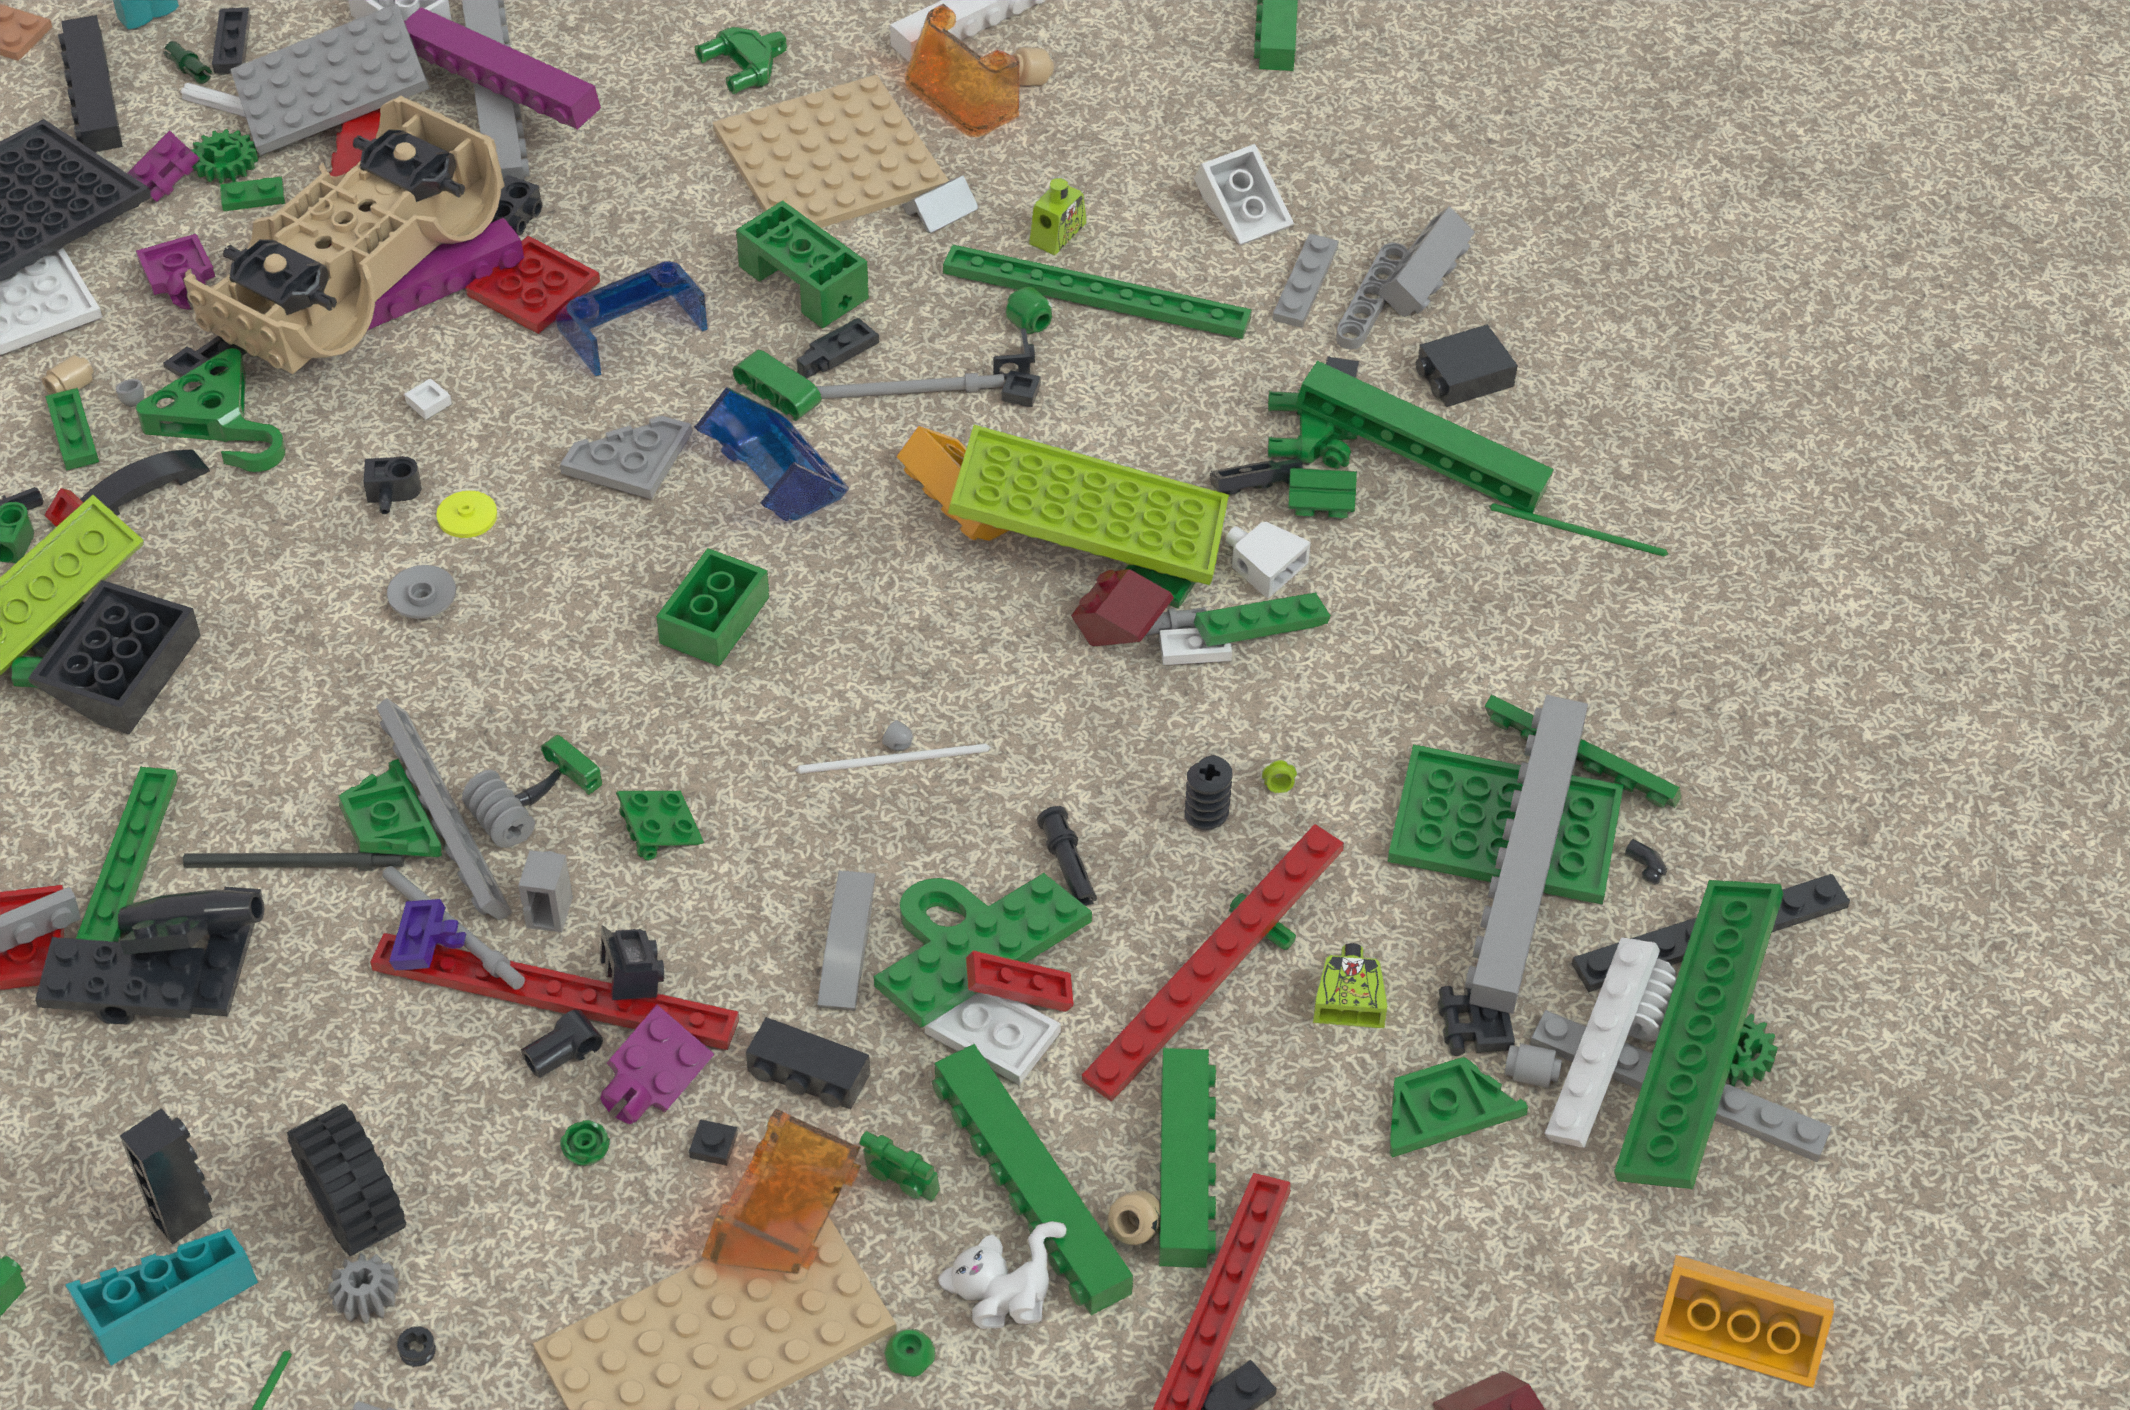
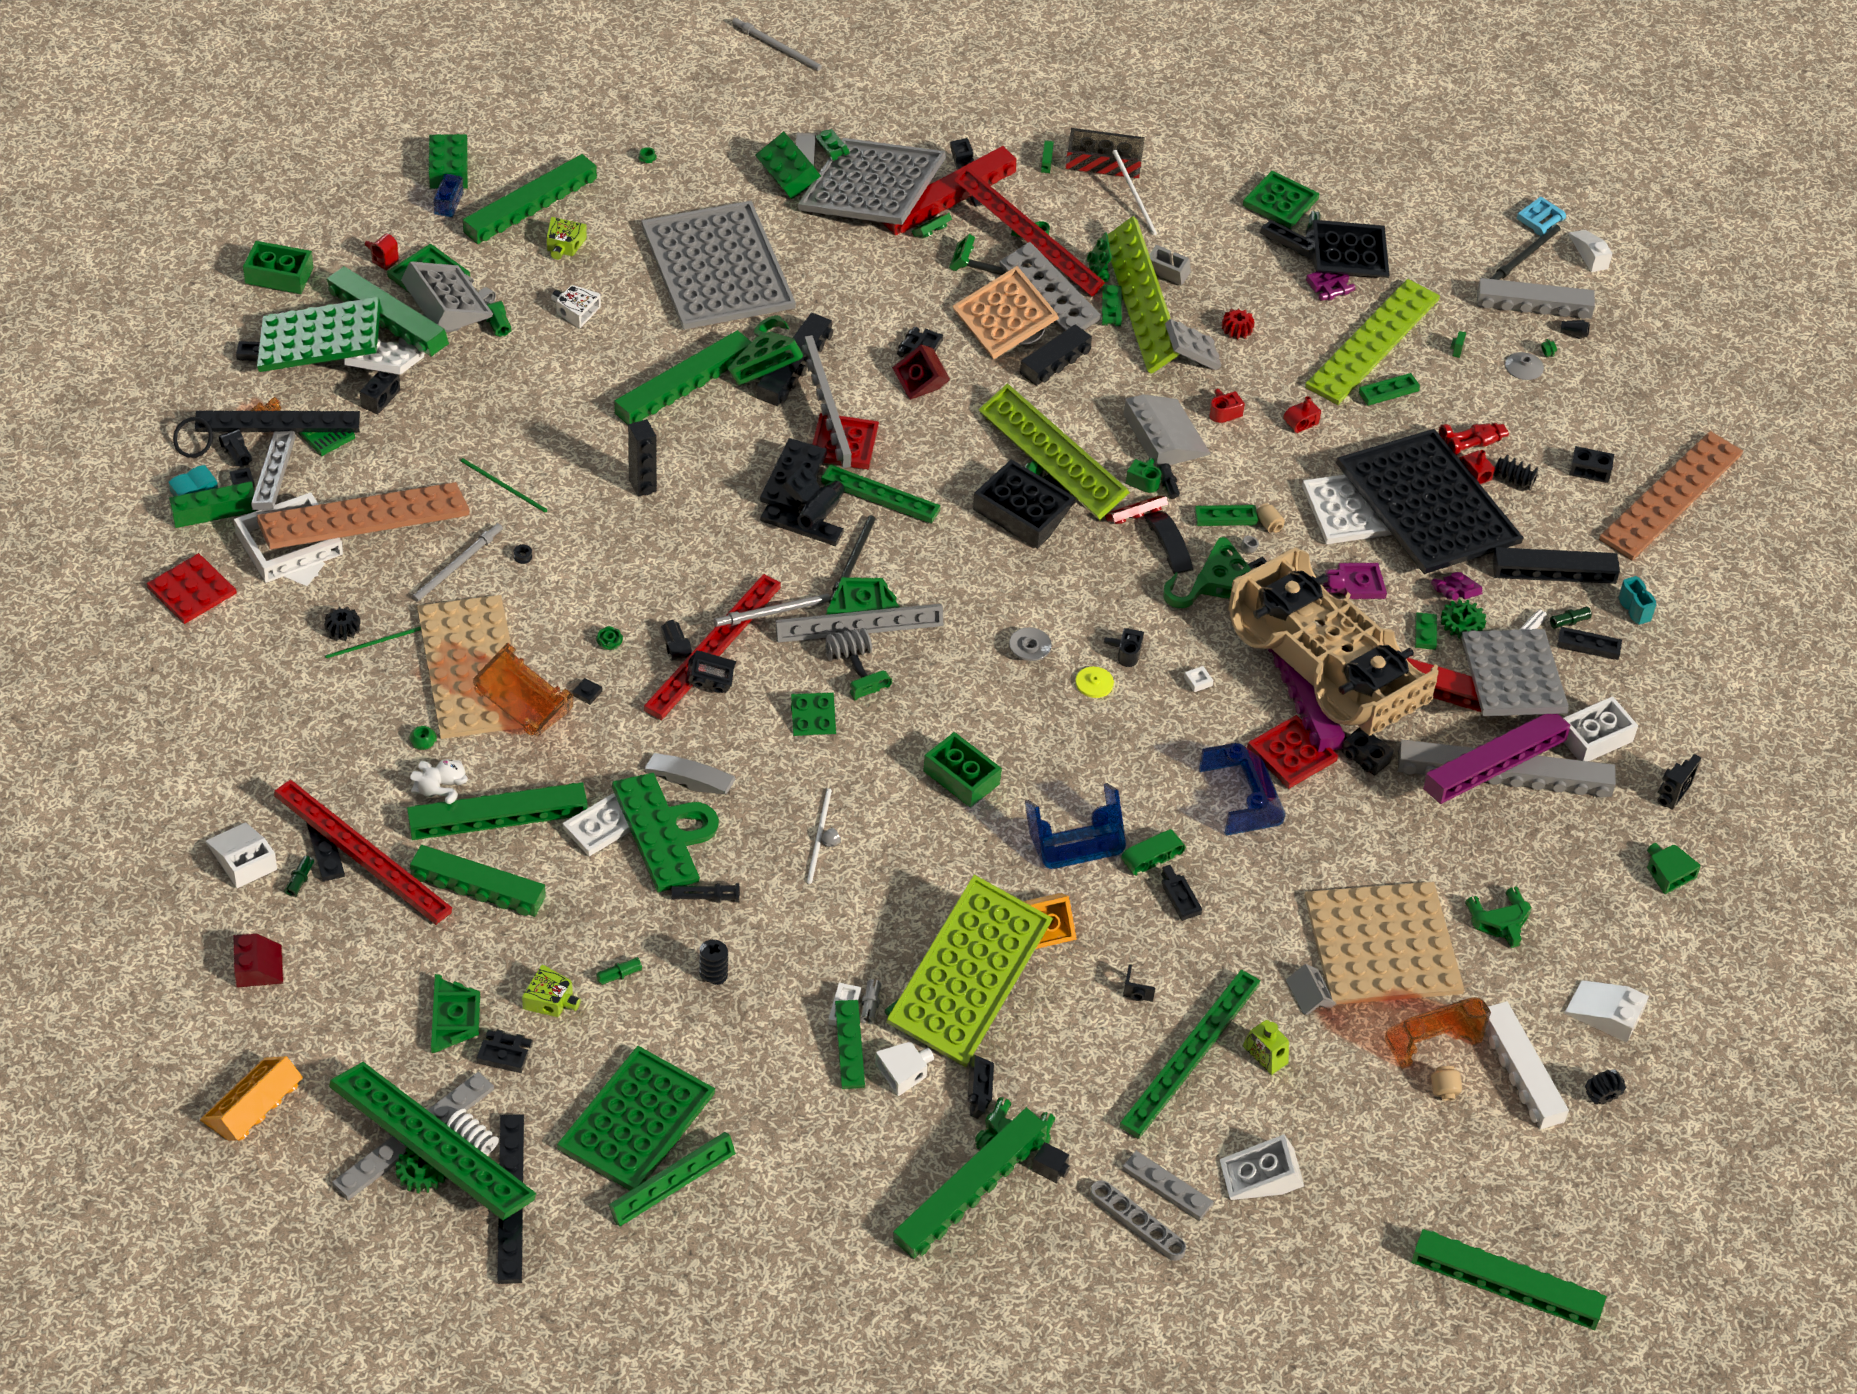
camera: 105 degrees right, 0 degrees up
(162, 1293) = (592, 461): teal wedge -> none
(346, 1179) = (616, 540): black tyre -> none
(363, 1287) = (563, 538): light grey gear -> none
(420, 932) = (765, 589): dark purple plate -> none
(545, 891) = (773, 646): light grey piece -> none
(629, 457) = (1113, 763): light grey plate -> none
(653, 1066) = (640, 671): magenta plate -> none
(807, 1063) = (614, 736): black brick -> none
(828, 273) = (1234, 887): green plate -> none
(905, 1168) = (529, 757): green plate -> none
(970, 383) = (1125, 957): light grey bar -> none
(1019, 981) = (619, 834): red plate -> none
(1021, 388) = (1107, 982): black plate -> none
(1029, 310) = (1179, 1004): green head -> none
(1120, 608) = (881, 965): dark red slope -> none
(1135, 1217) = (448, 841): tan head -> none
(1212, 963) = (598, 934): red plate -> none
(1279, 783) = (723, 1015): lime plate -> none
(1322, 491) = (947, 1112): green brick -> none
(1427, 262) = (1153, 1257): light grey brick -> none
(1466, 365) = (1041, 1246): black brick -> none
(1528, 855) = (597, 1102): light grey brick -> none
(1533, 1065) = (458, 1063): light grey brick -> none
(1578, 529) = (860, 1271): green axle -> none
(1602, 1042) = (451, 1092): white plate -> none
(1649, 858) = (576, 1186): black arm -> none

